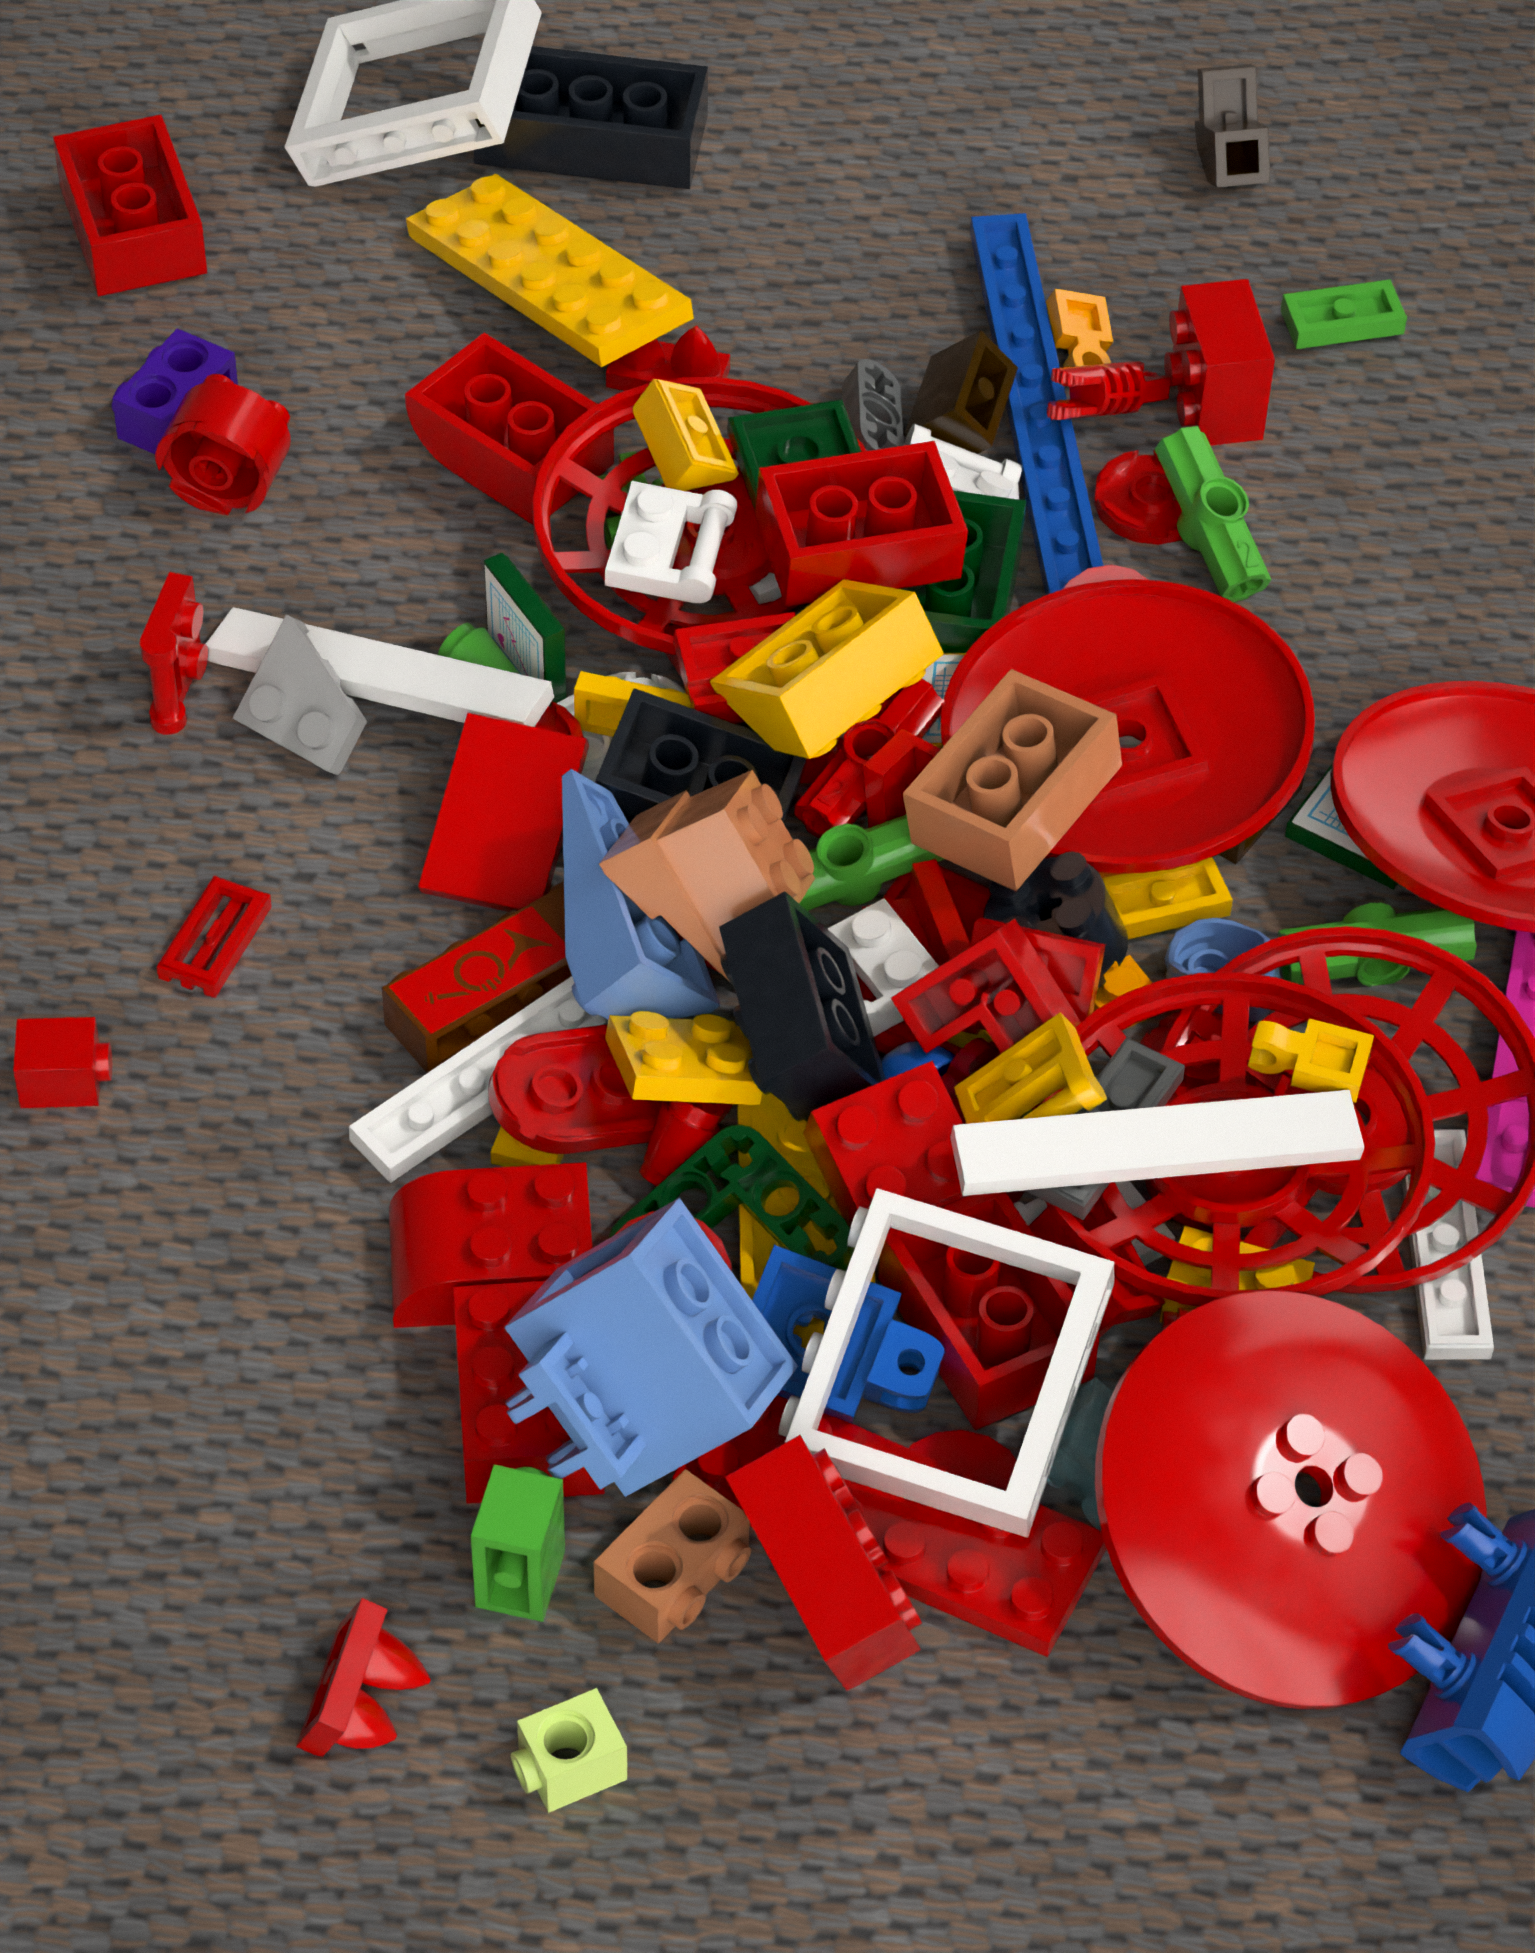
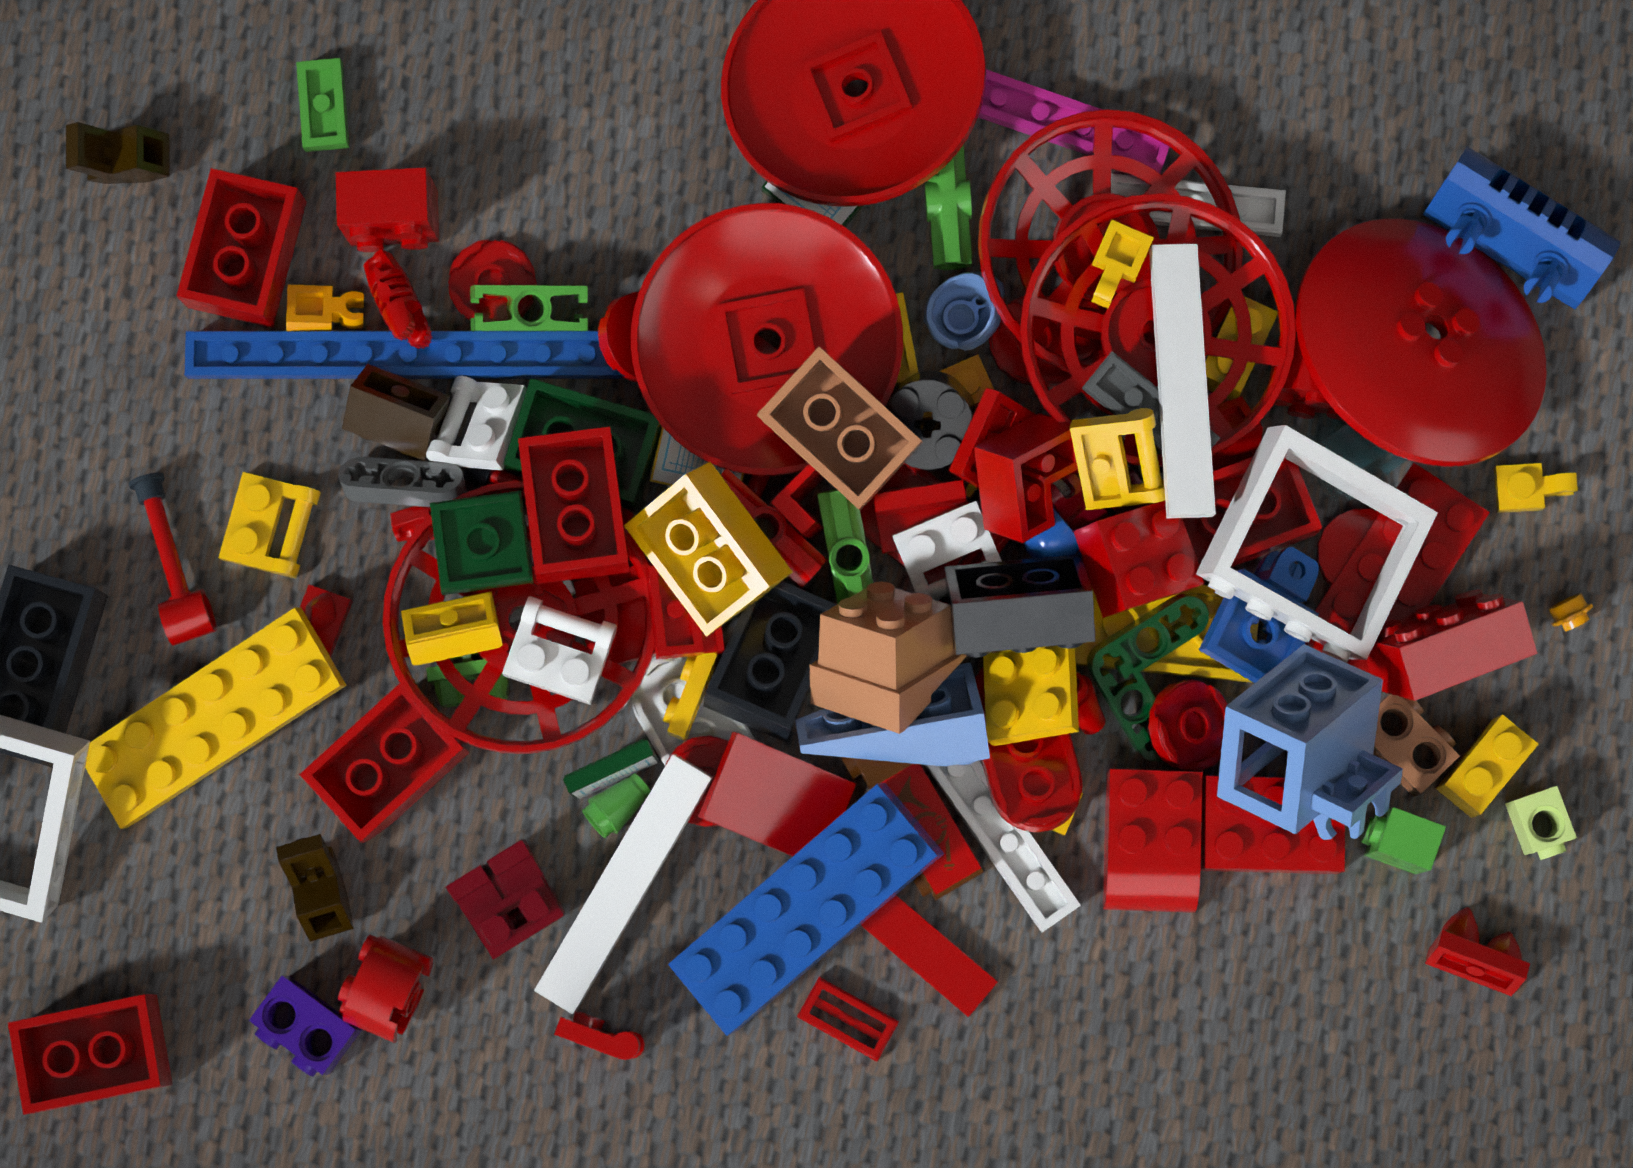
camera: 75 degrees left, 30 degrees up
(60, 1062) = (963, 1132): red brick -> none
(301, 701) = (646, 942): light grey wing -> none
(327, 998) = (930, 955): none -> red tile
(350, 563) = (507, 899): none -> dark red hips
(351, 392) = (316, 887): none -> dark brown brick
(360, 845) = (806, 908): none -> blue brick
(649, 1664) = (1487, 766): none -> yellow brick
(680, 252) = (186, 613): none -> red piece
(799, 316) = (255, 523): none -> yellow plate
(910, 1777) = (1570, 612): none -> light orange plate
(1102, 1706) = (1524, 487): none -> yellow plate
(1119, 491) = (542, 294): none -> bright green piece
(1138, 240) = (241, 247): none -> red brick
(1212, 514) = (514, 246): bright green piece -> none

